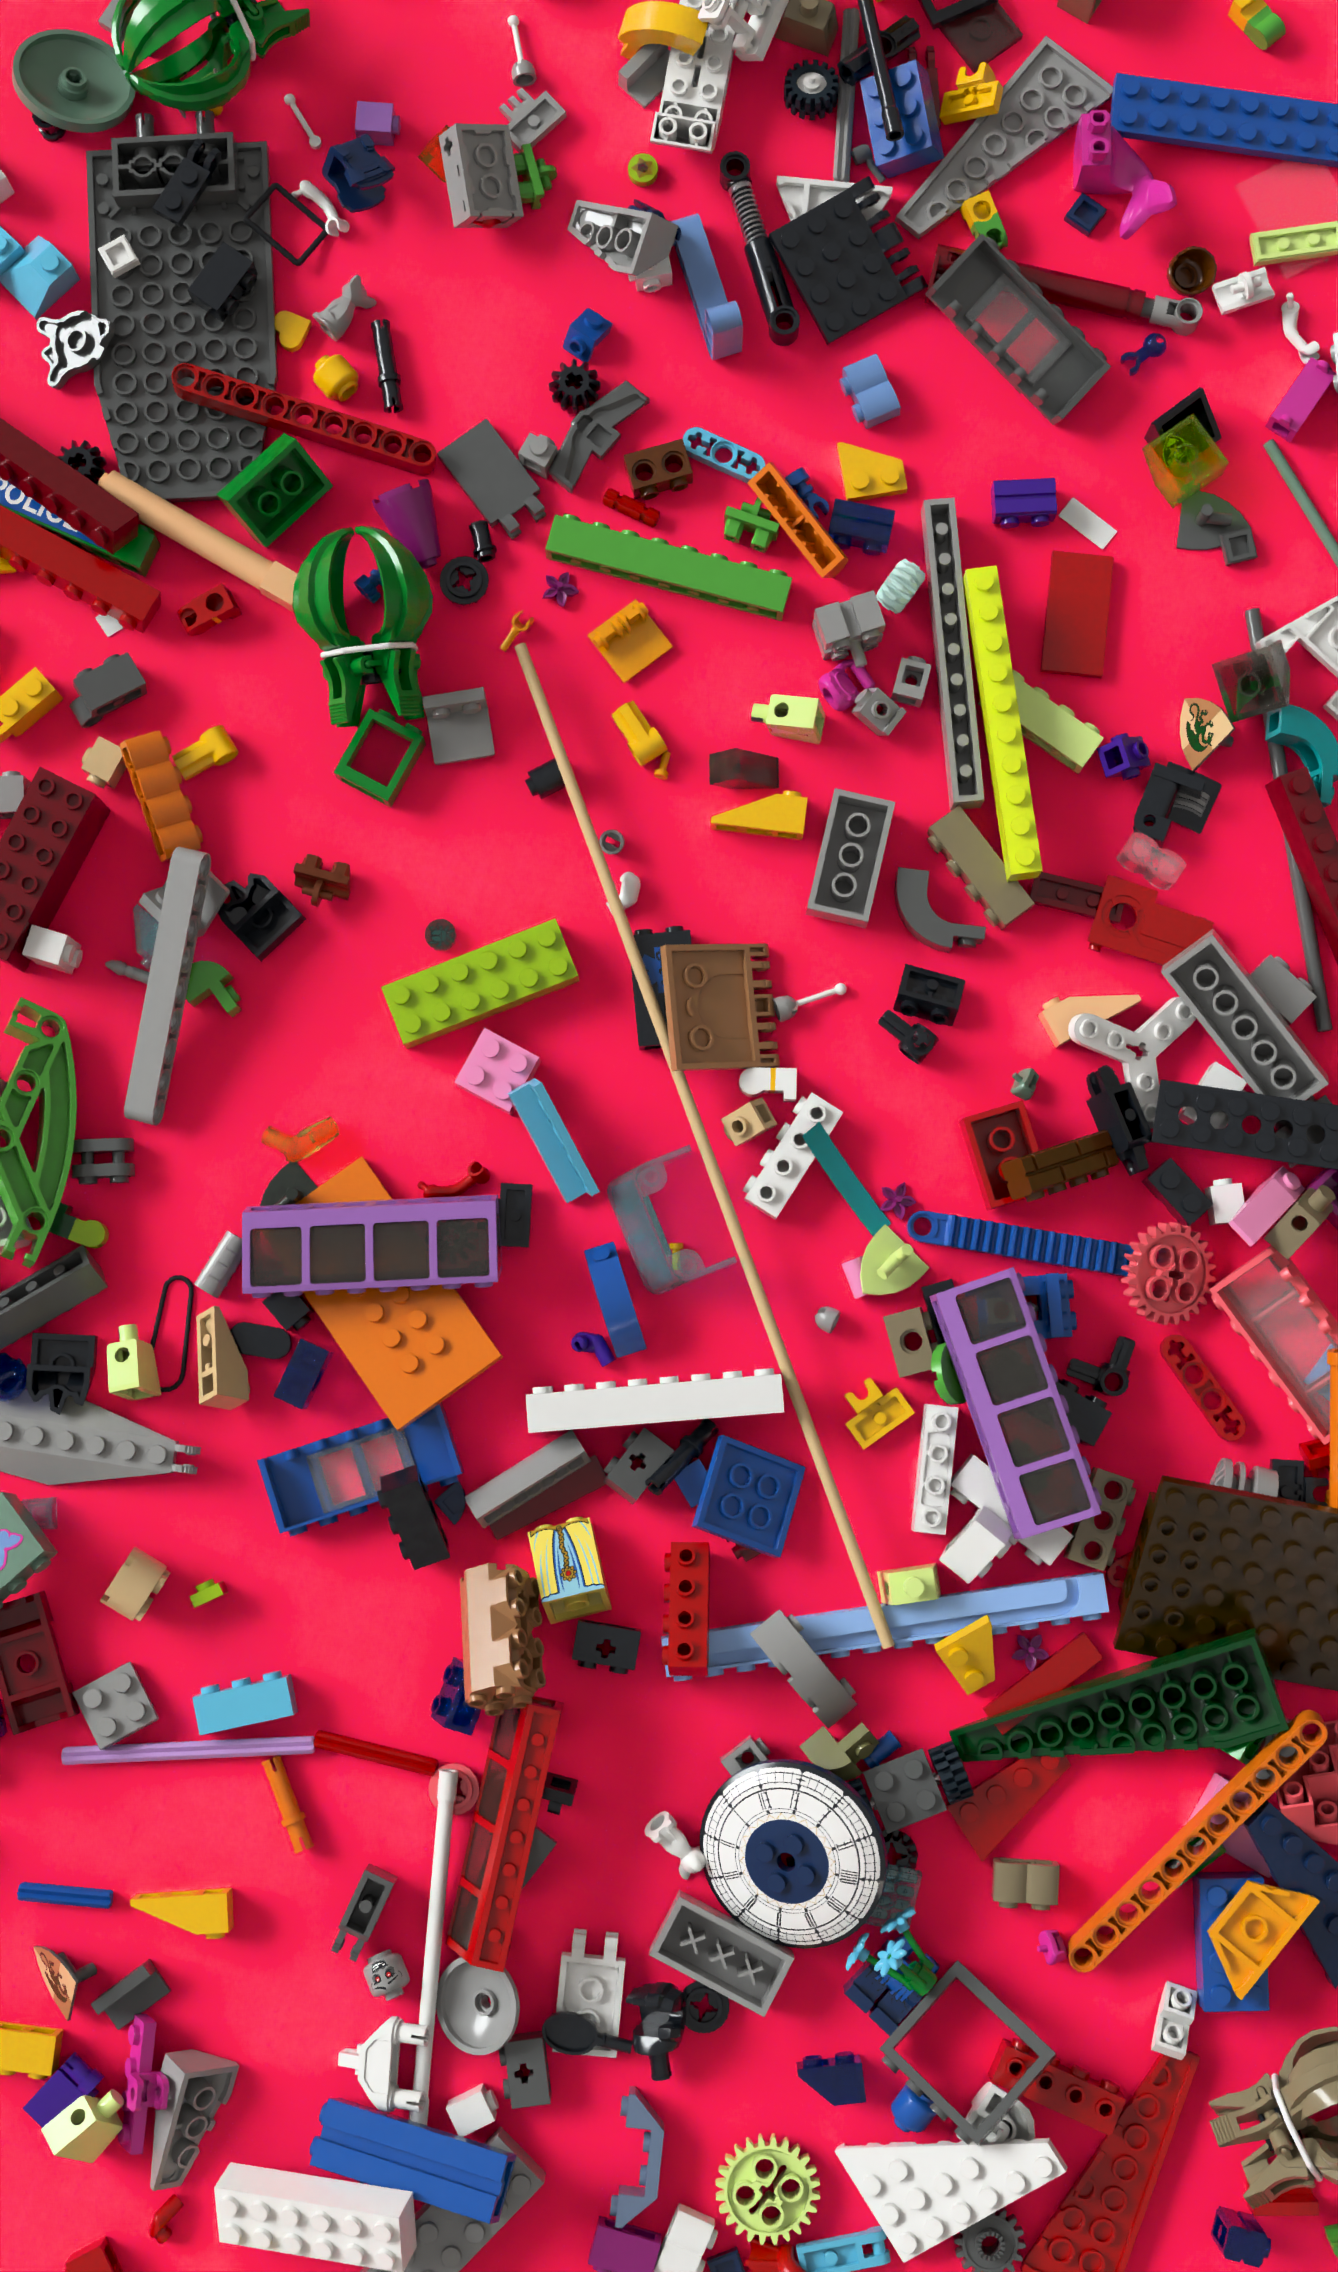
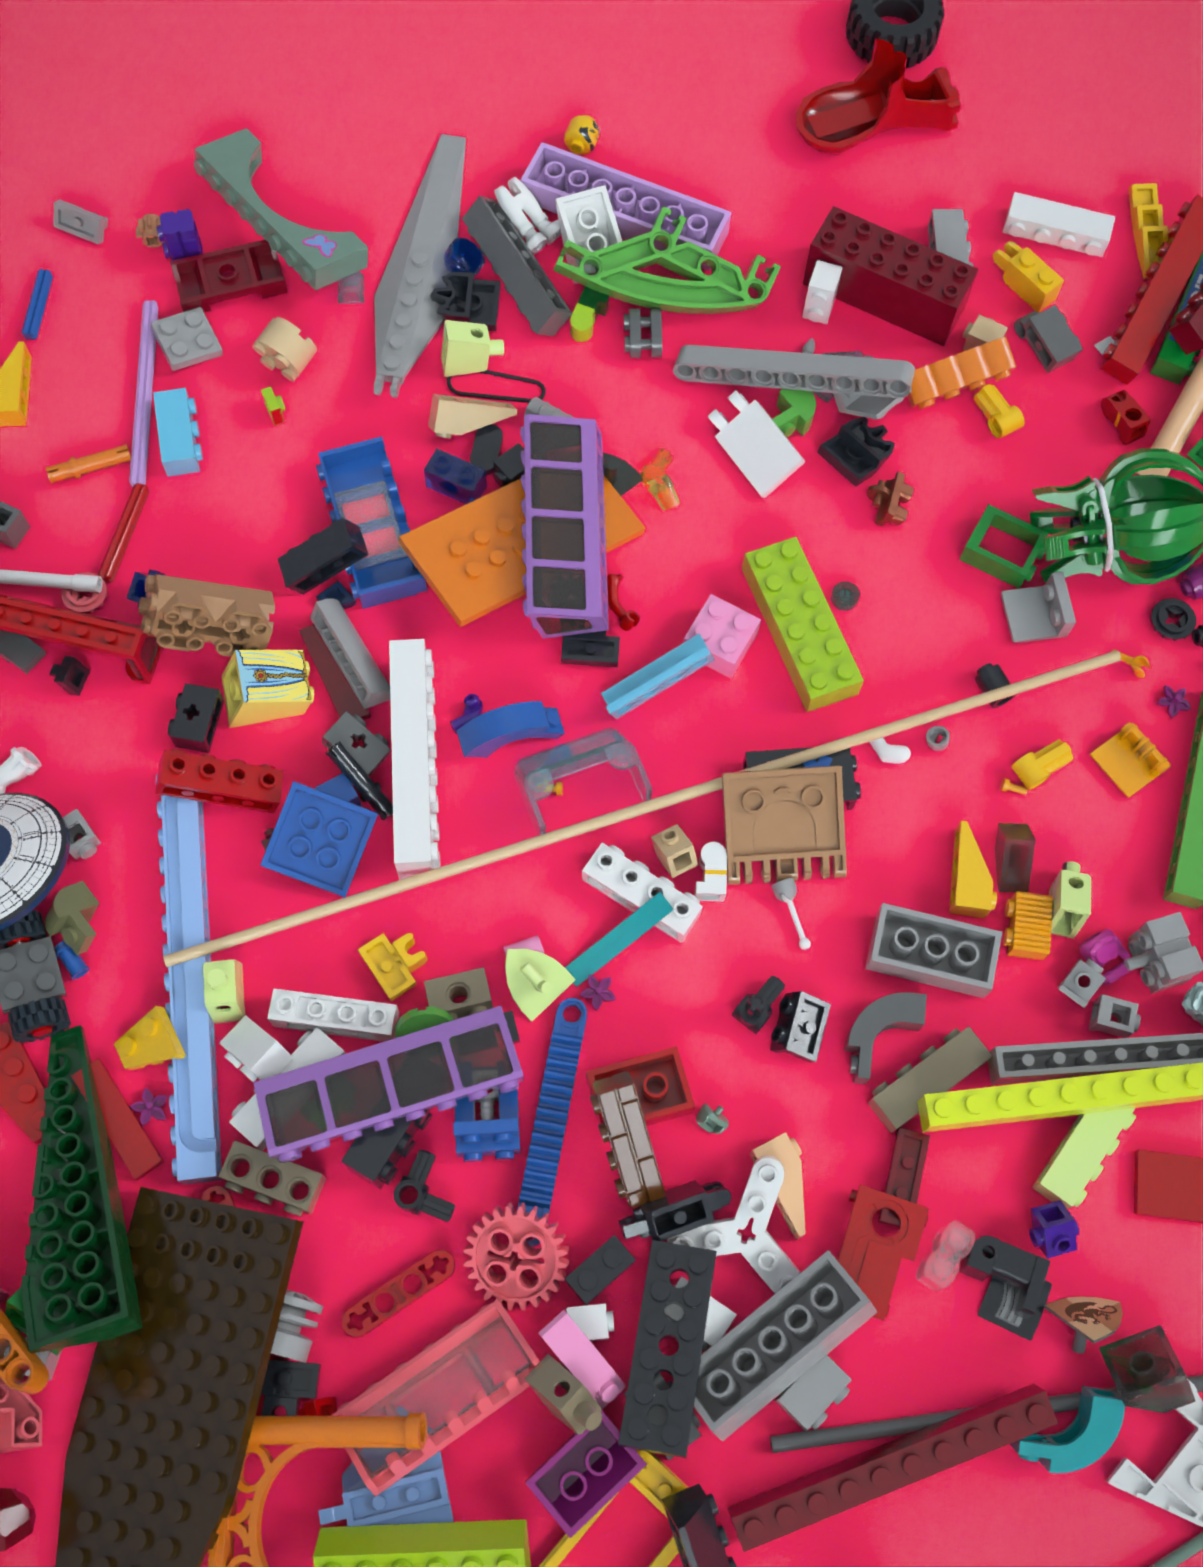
camera: 85 degrees right, 15 degrees down
(255, 1030) = (756, 445): none -> white tile
(809, 1675) = (150, 881): light grey brick -> none
(817, 760) = (1029, 925): none -> light orange brick
(827, 1318) = (484, 922): light grey hinge -> none

